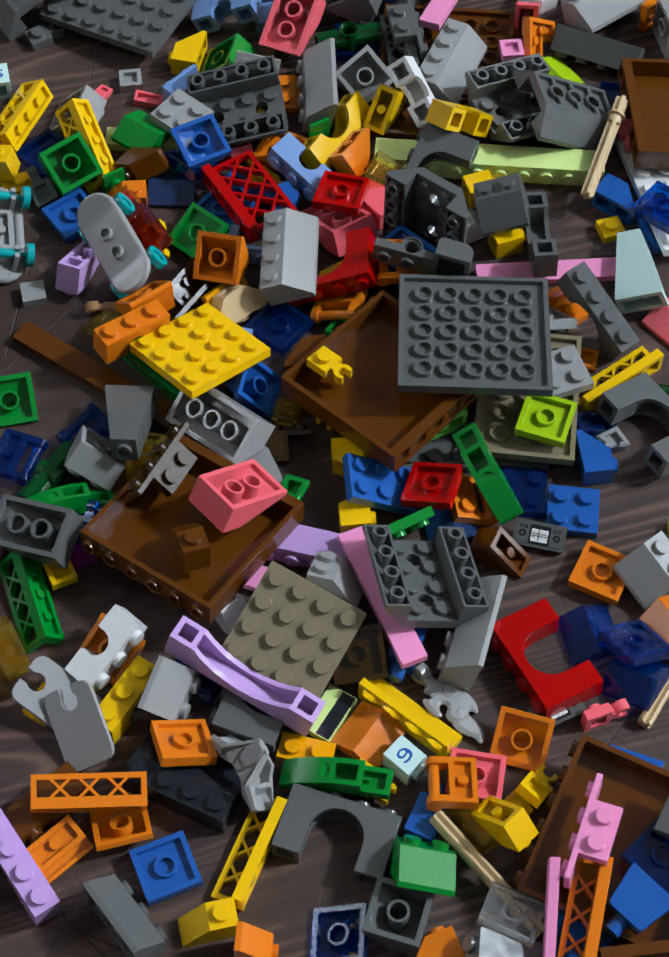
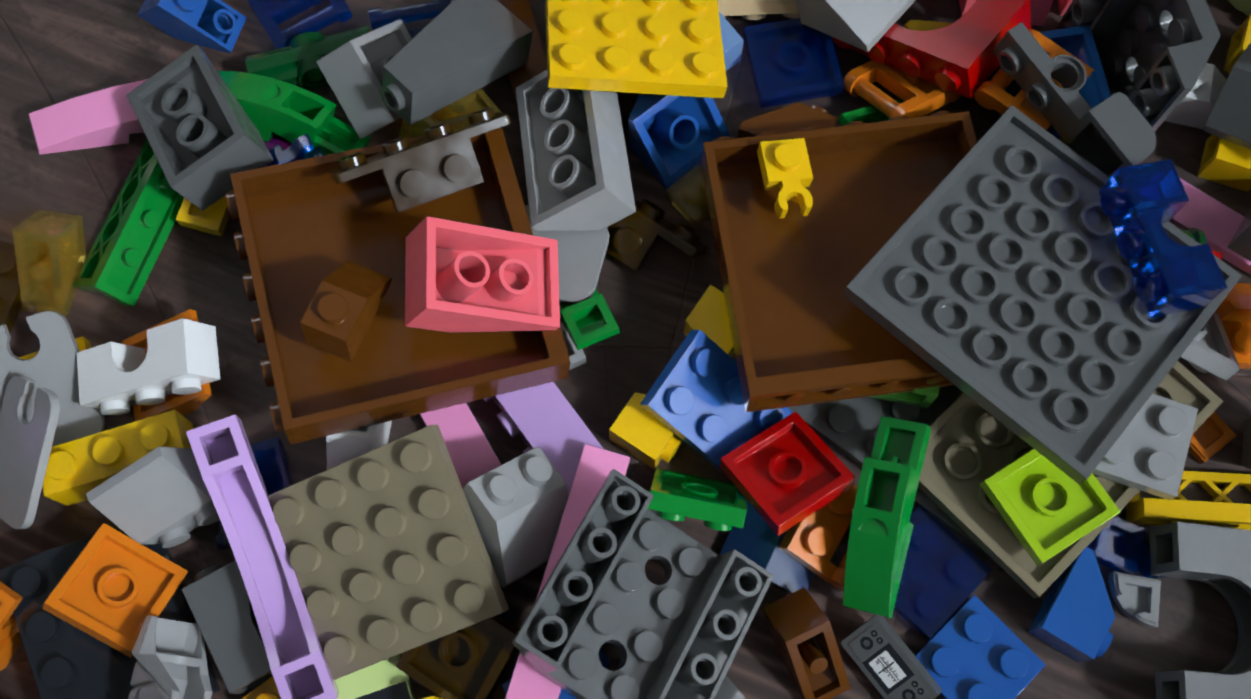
camera: 40 degrees right, 15 degrees up
(518, 294) = (1165, 273): none -> clear blue arch

